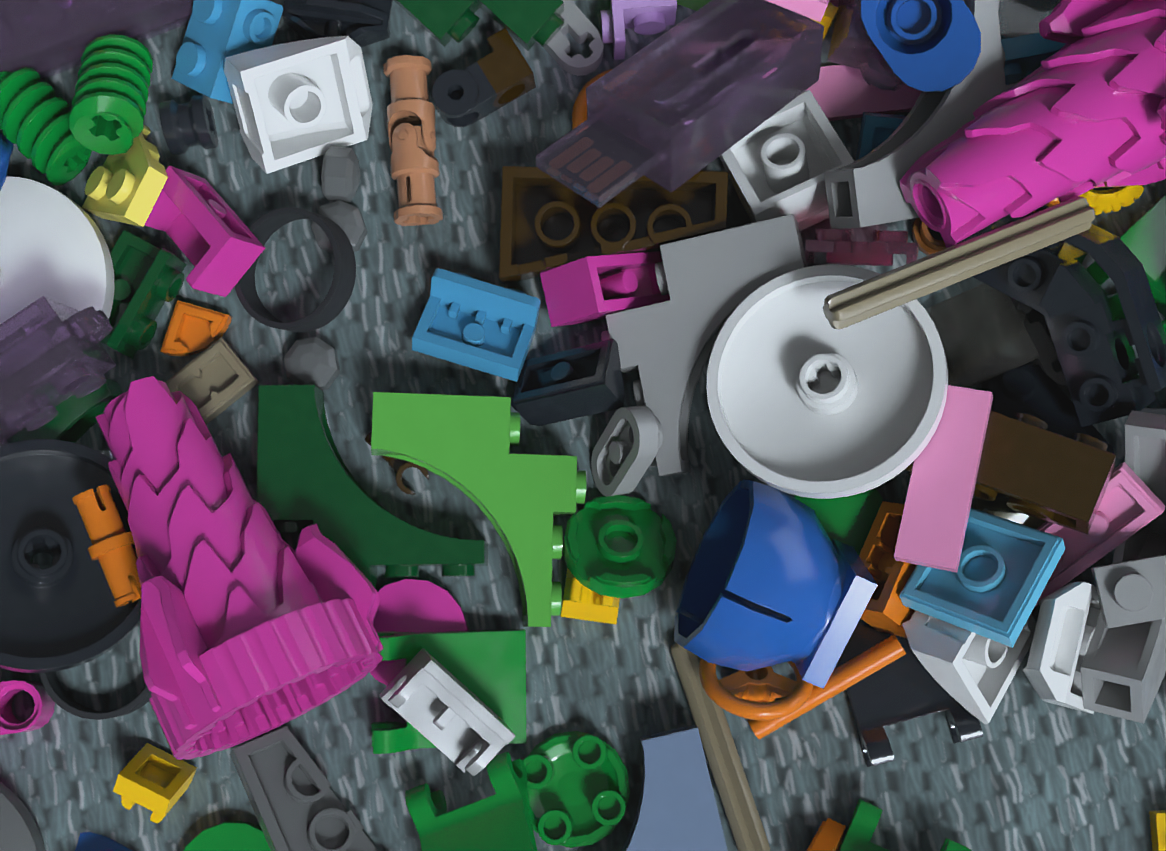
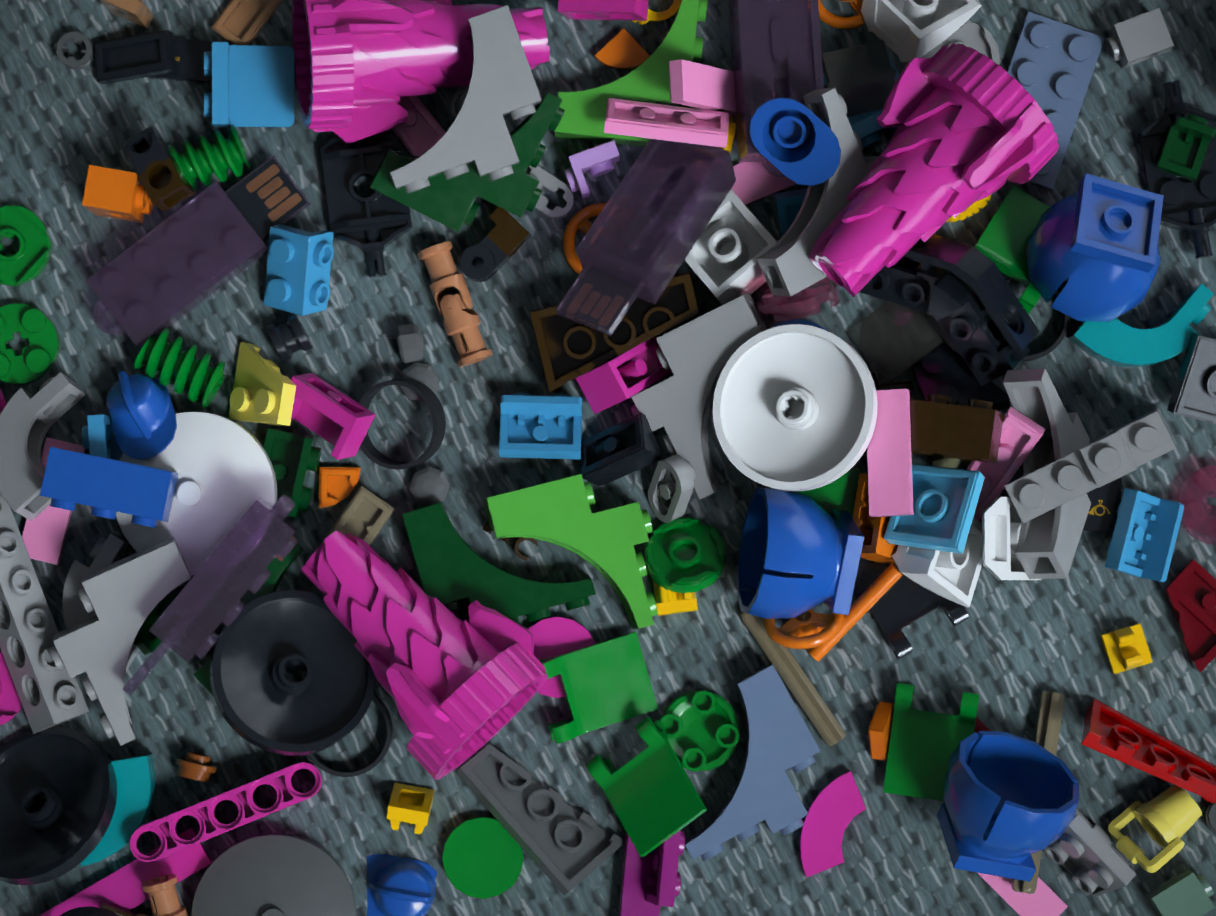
camera: 15 degrees left, 5 degrees up
(110, 543) = (341, 653): orange pin -> none
(111, 94) = (232, 333): green piece -> none
(300, 99) = (366, 300): white slope -> none
(447, 713) = (599, 703): hinge -> none
(957, 262) = (862, 305): dark tan axle -> none

